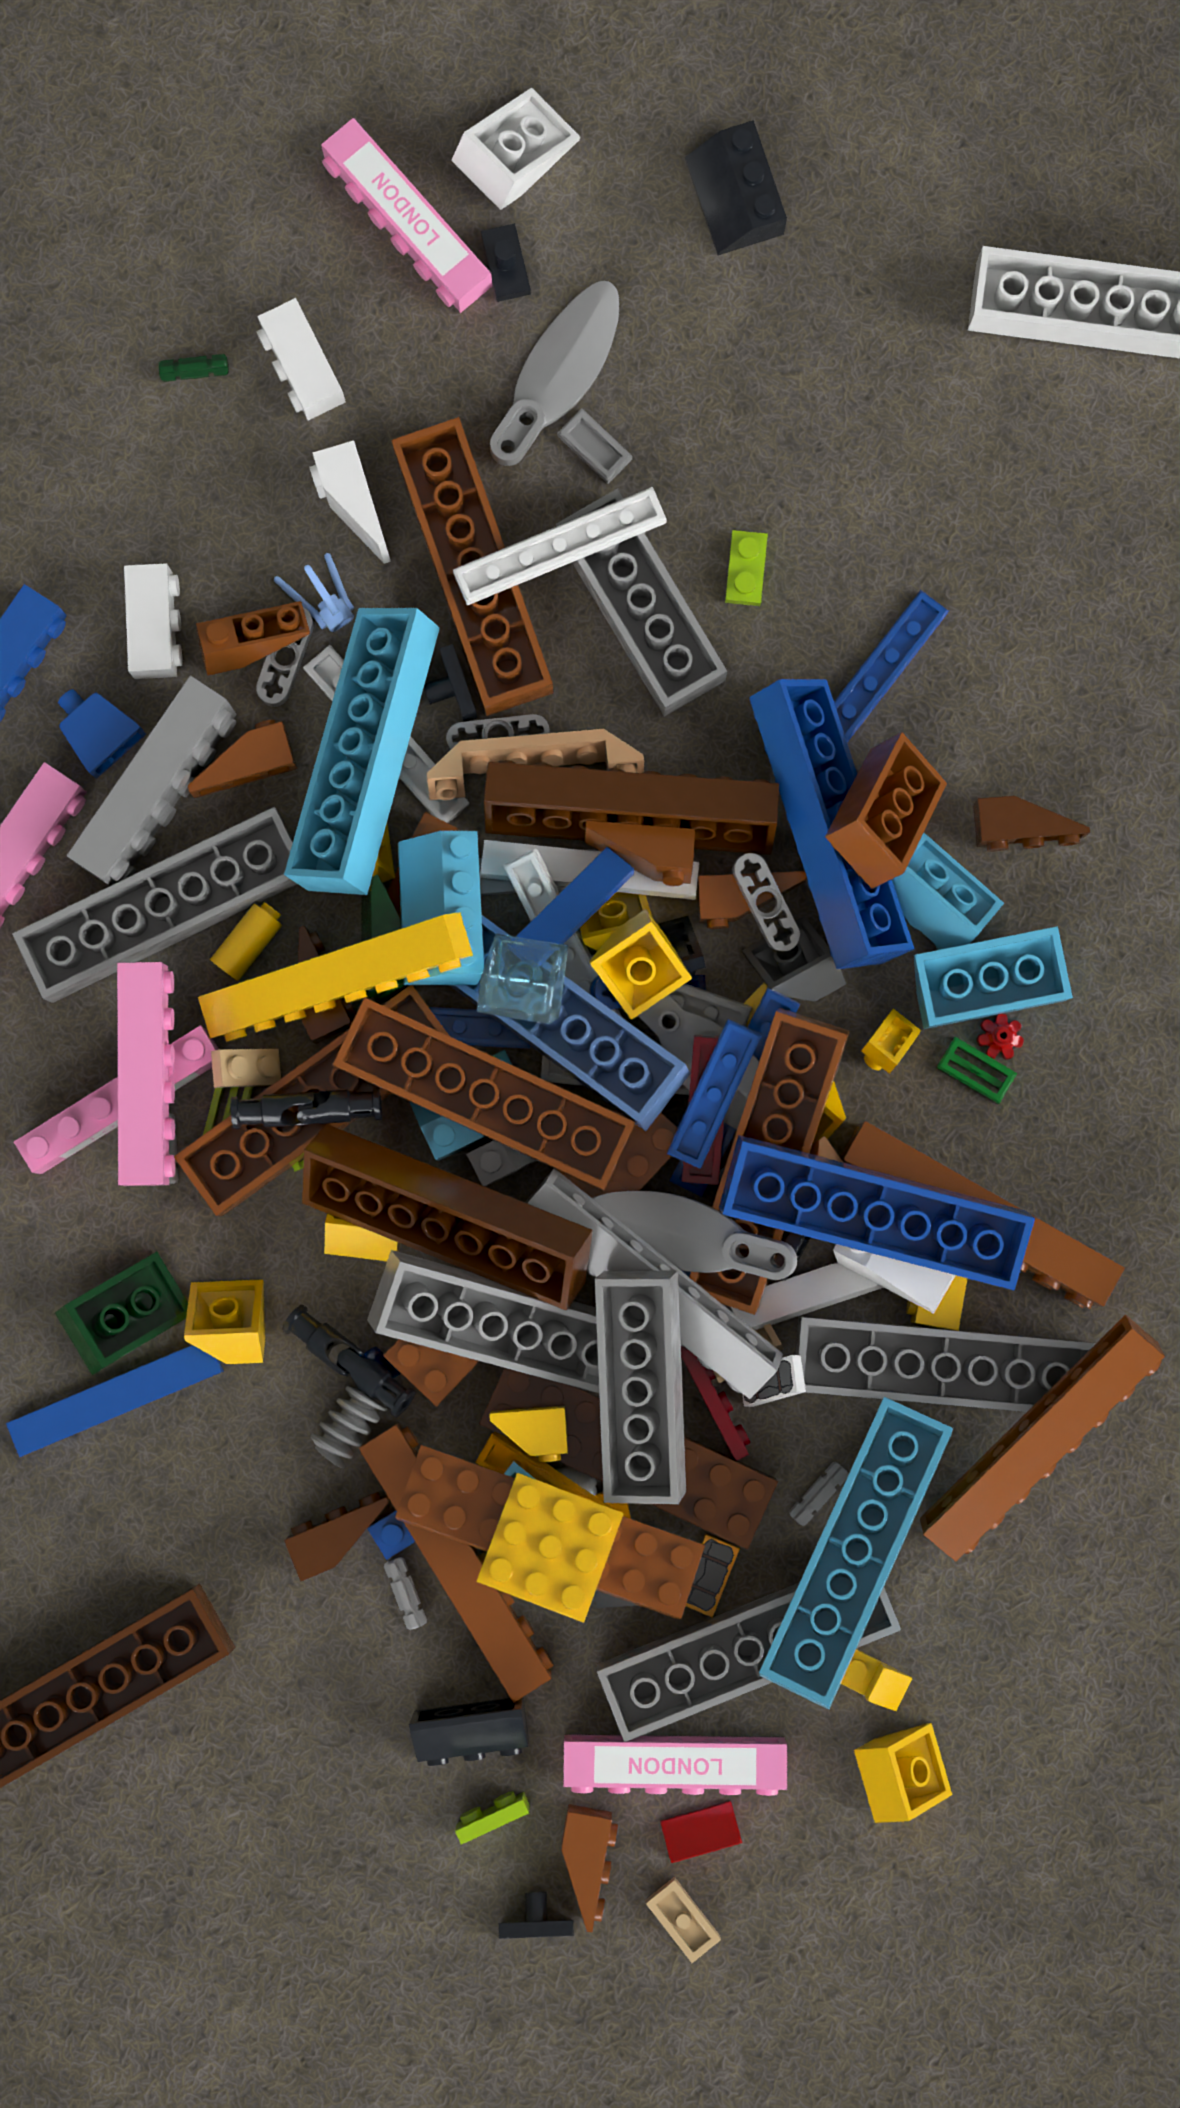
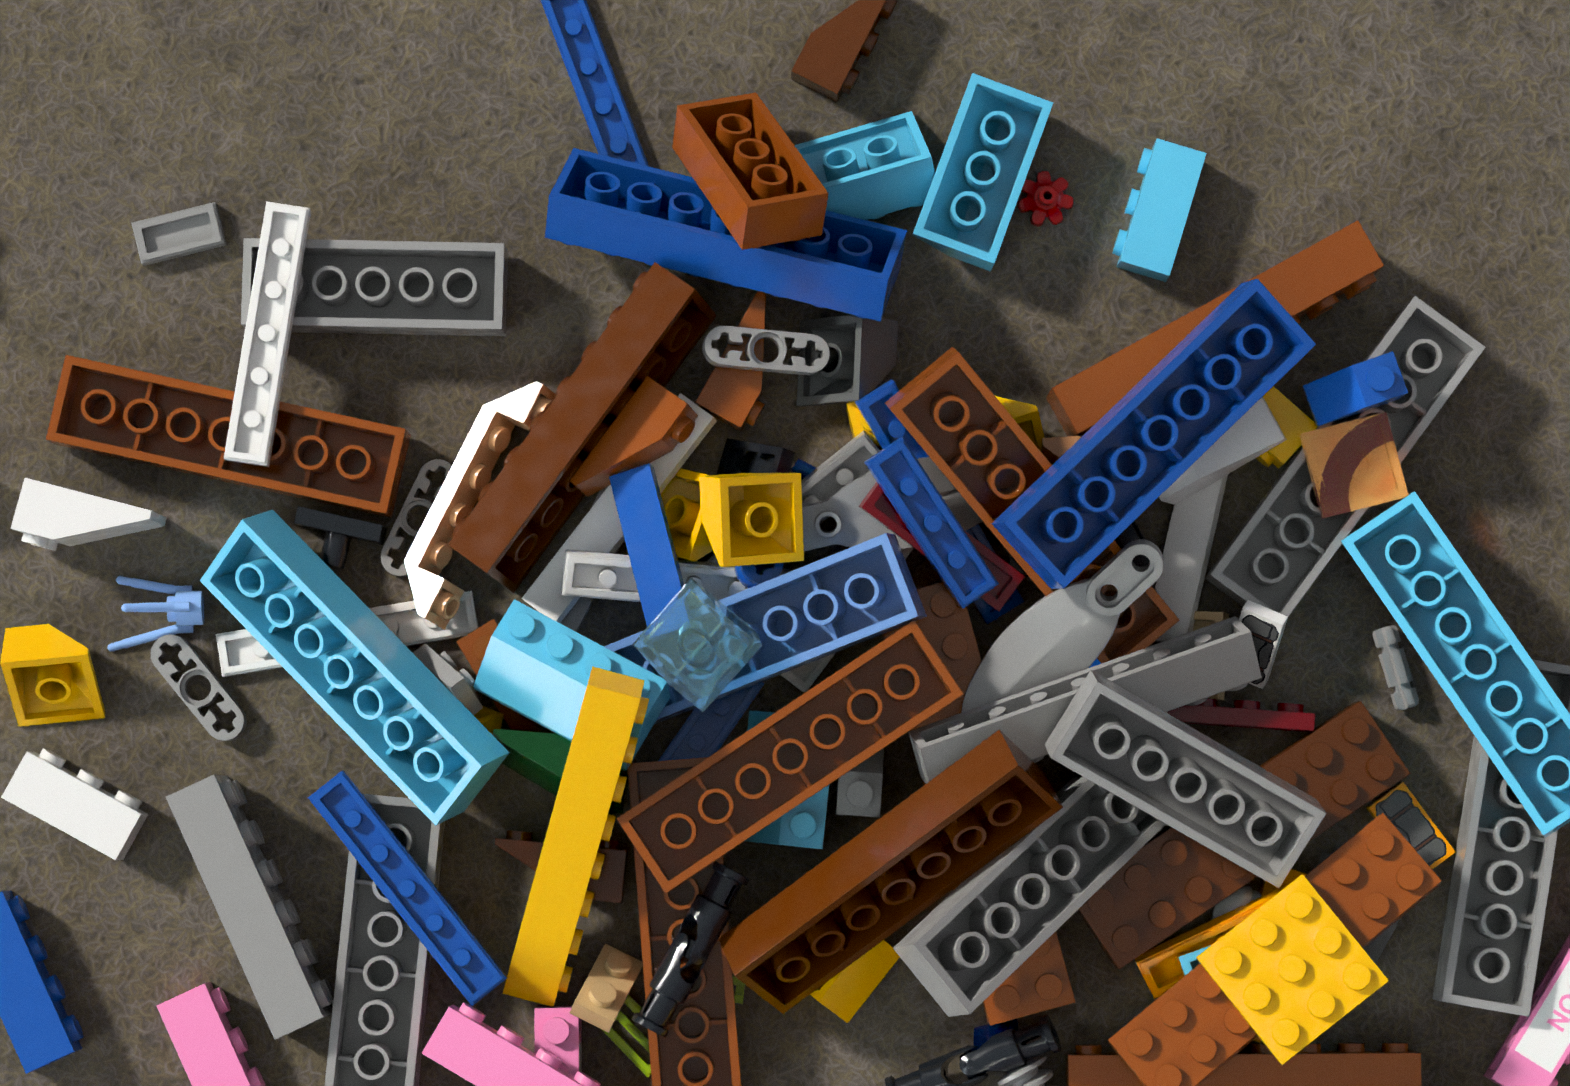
camera: 60 degrees left, 0 degrees up
(97, 730) = (155, 930): blue torso -> none
(228, 547) = (49, 676): none -> yellow slope
(230, 884) = (407, 887): none -> blue tile
(247, 637) = (157, 711): dark orange slope -> none
(247, 940) = (473, 901): yellow brick -> none
(251, 758) = (285, 783): dark orange slope -> none
(397, 822) = (457, 682): none -> light grey plate
(535, 1430) = (1162, 913): yellow slope -> none
(559, 369) = (75, 220): light grey plant -> none
(746, 568) = (404, 157): lime plate -> none
(890, 1042) = (984, 313): yellow tile -> none
(945, 1373) = (1354, 465): none -> clear orange tile
(950, 1055) = (1033, 261): green tile -> none
(1000, 1340) = (1355, 389): none -> blue slope
(1042, 1438) = (1477, 409): dark orange brick -> none
(1043, 1121) = (1159, 209): none -> medium azure brick

